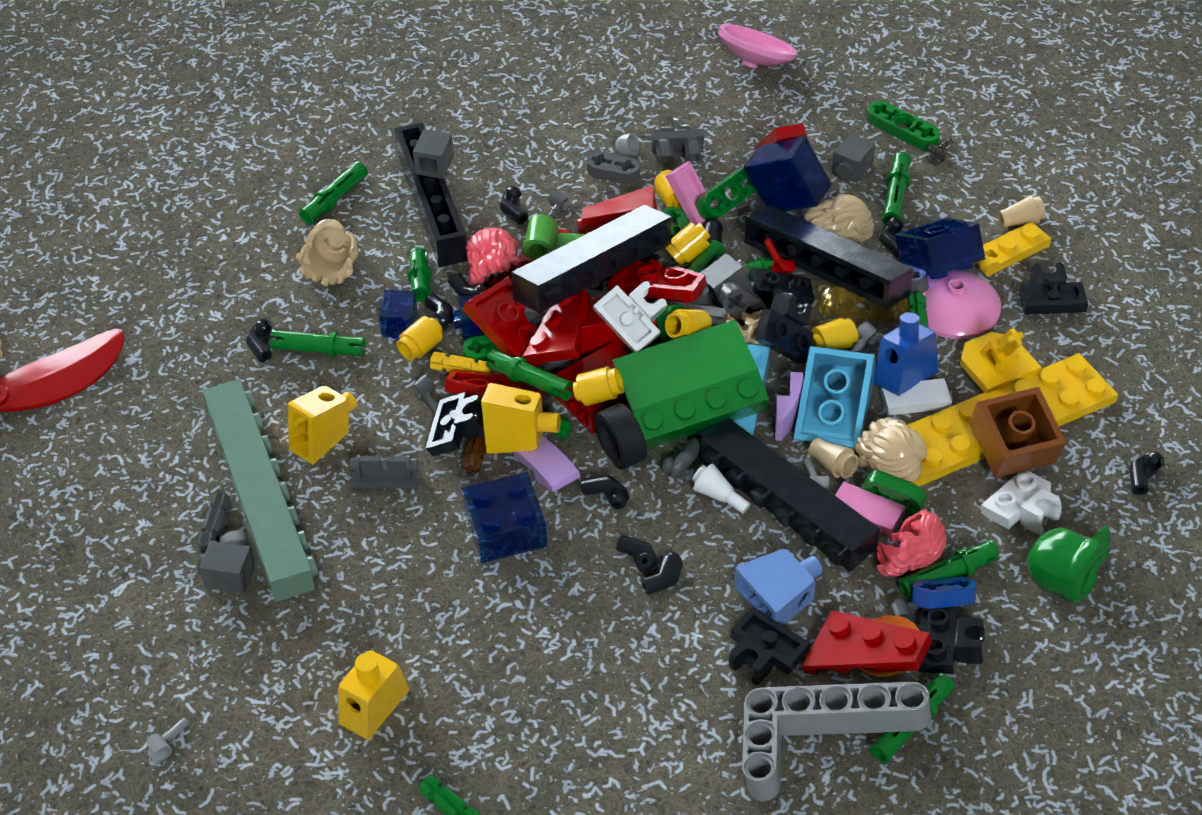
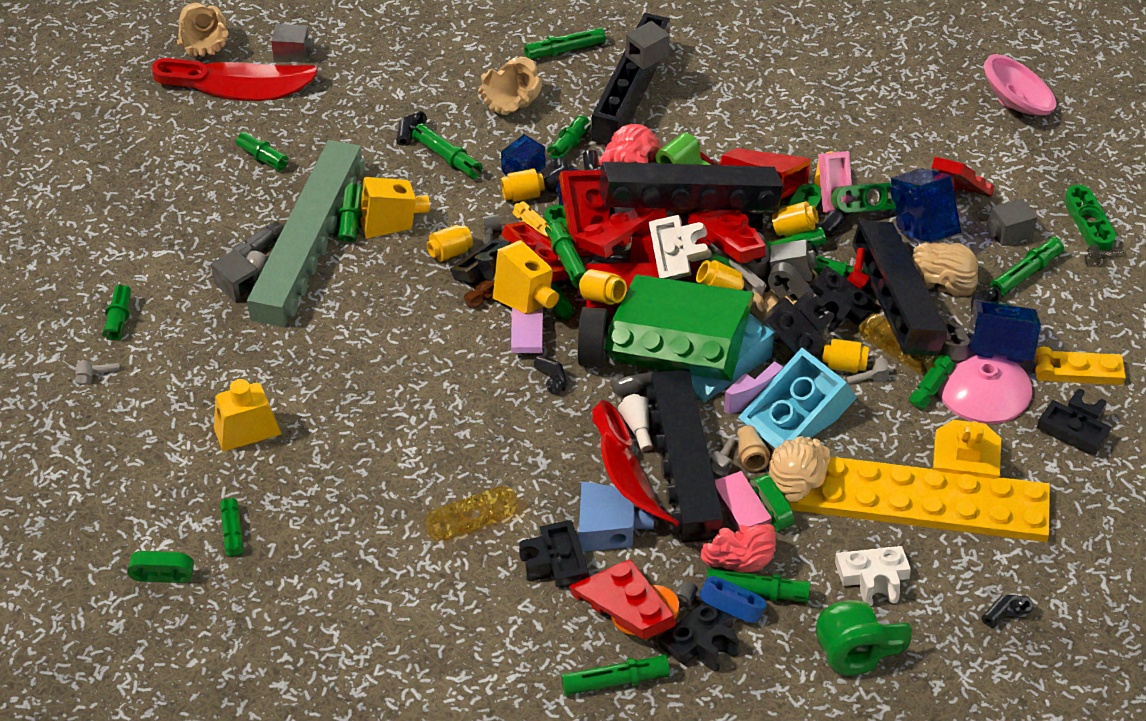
camera: 35 degrees right, 0 degrees up
(68, 319) = (291, 43): none -> flat silver brick
(136, 436) = (262, 151): none -> green axle
(138, 670) = (117, 313): none -> green axle
(285, 447) = (350, 213): none -> green axle
(395, 472) = (404, 270): dark grey hinge -> none
(403, 424) = (449, 242): none -> yellow brick
(504, 517) = (454, 349): clear blue brick -> none
(510, 205) = (693, 118): black arm -> none
(559, 203) = (731, 138): dark grey hand -> none
(613, 167) = (805, 129): dark grey beam -> none
(627, 145) = (831, 118): light grey hinge -> none
(642, 553) = (534, 433): black arm -> none
(655, 669) = (452, 529): none -> clear yellow beam
(667, 575) = (536, 461): black arm -> none
(675, 139) = (874, 132): dark grey hips -> none
(725, 517) = (621, 462): none -> red plant
(821, 718) = (512, 605): light grey beam -> none
(906, 356) = (883, 401): blue torso -> none
(923, 397) = (871, 441): white tile -> none
(1017, 432) = (909, 509): dark orange brick -> none
(1023, 212) = (1124, 343): tan cone -> none

